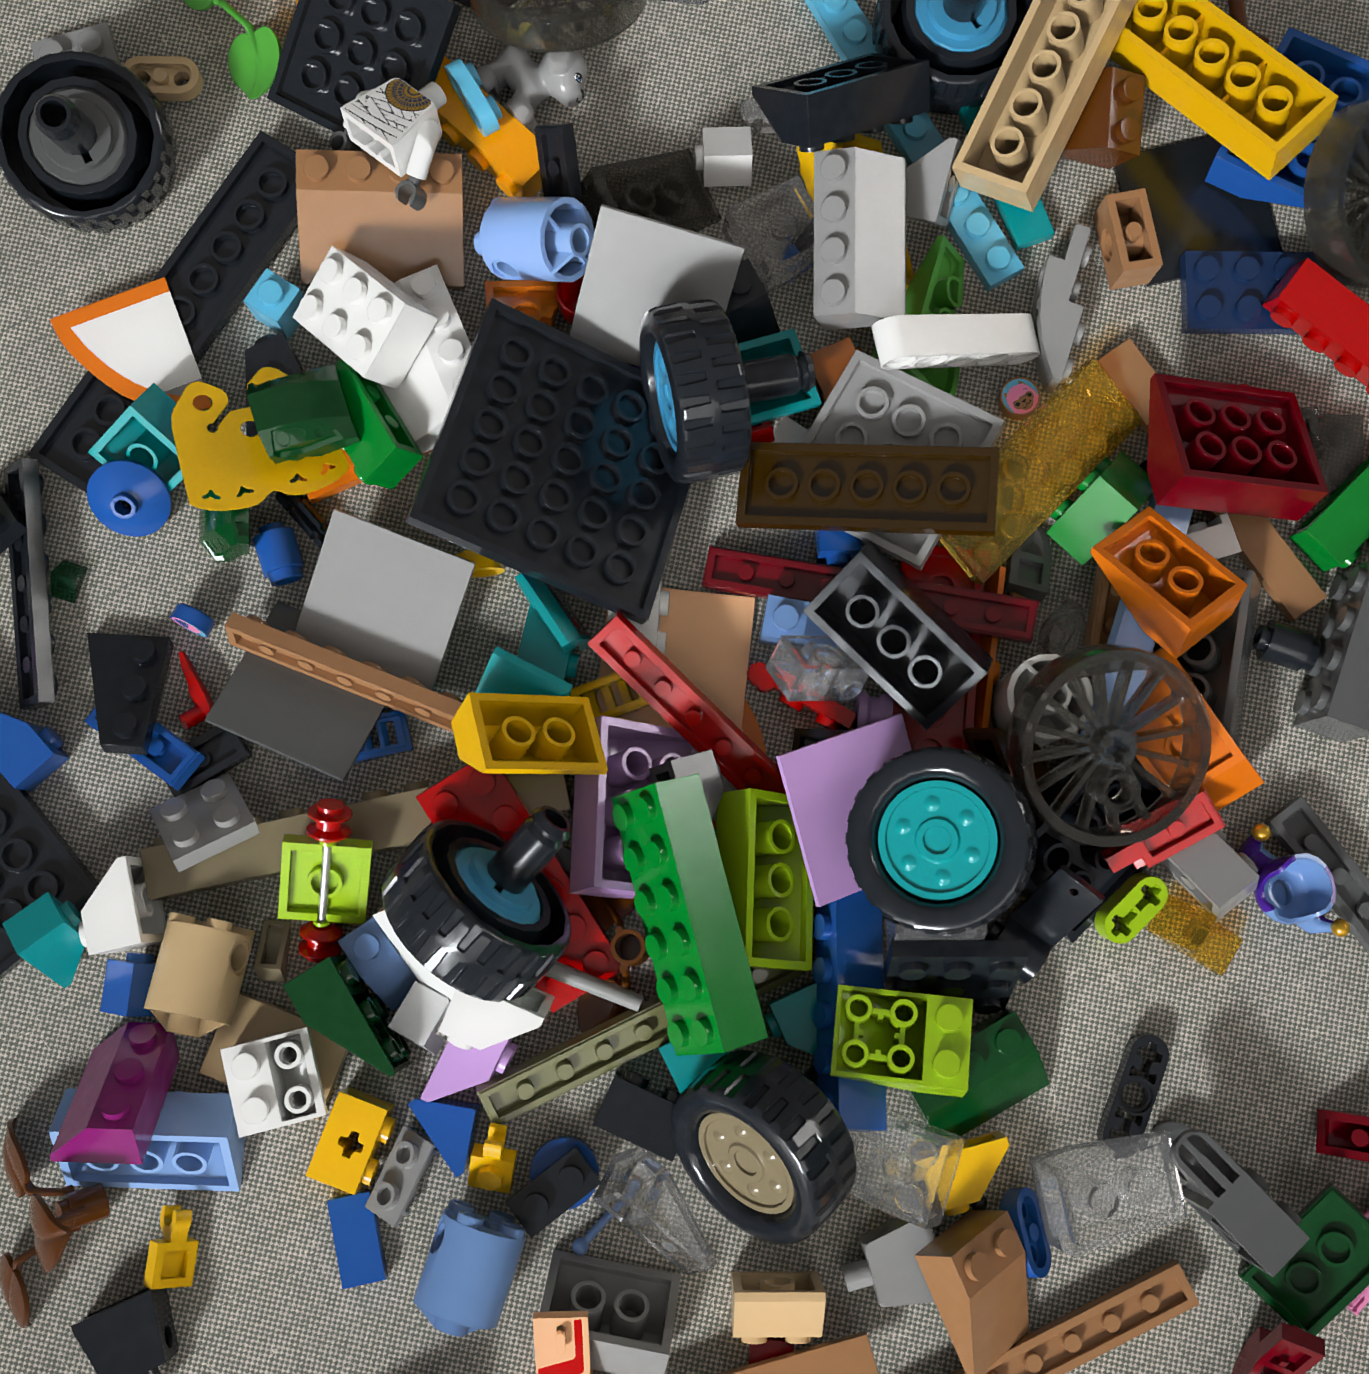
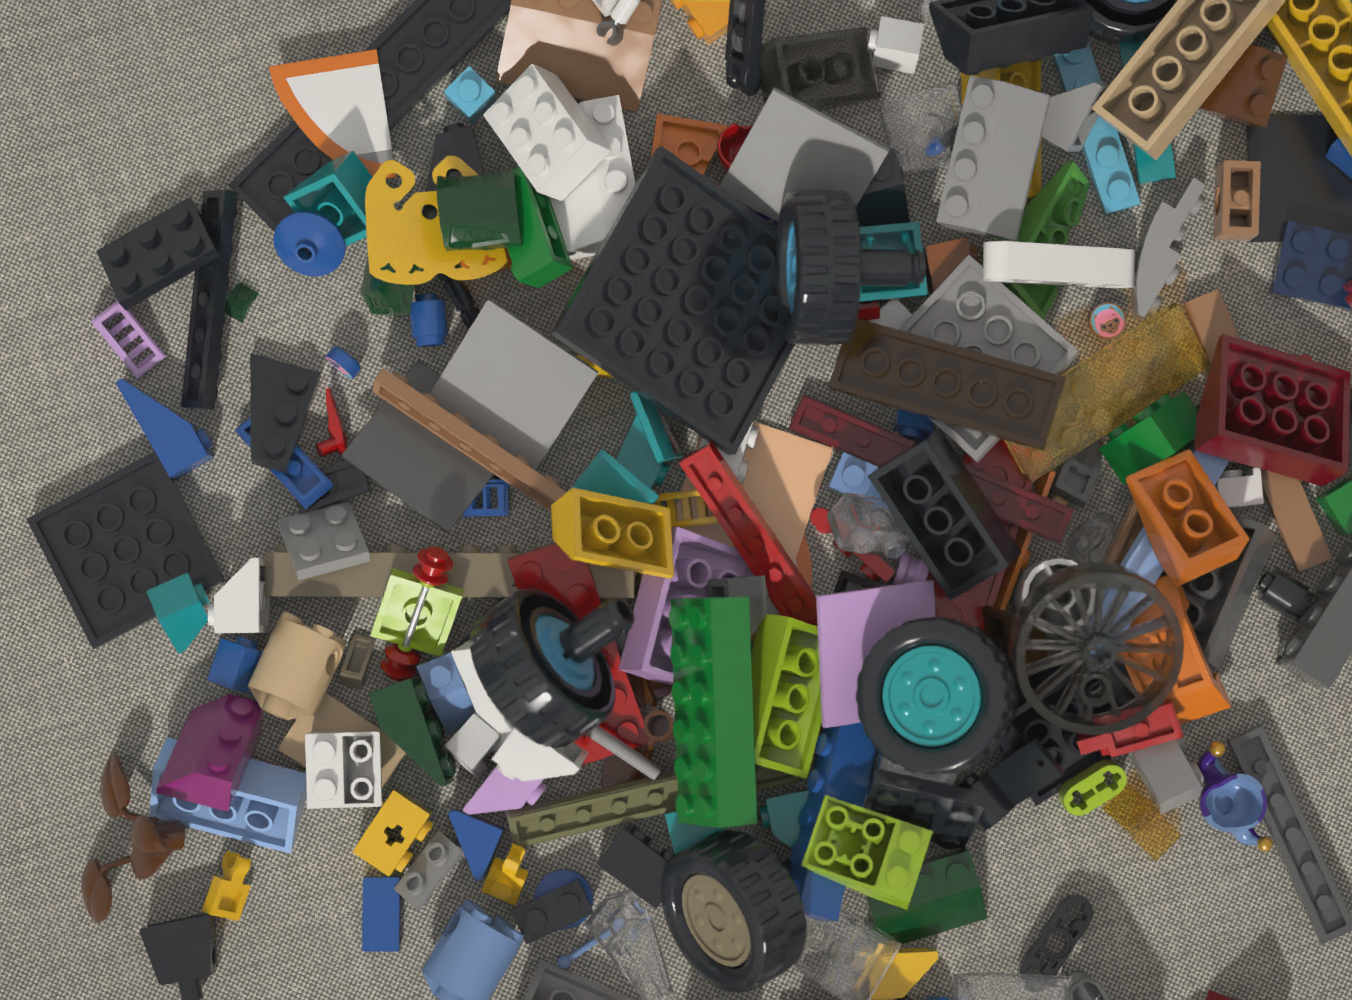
camera: 20 degrees right, 5 degrees up
(535, 238) = (711, 91): light blue cylinder -> none

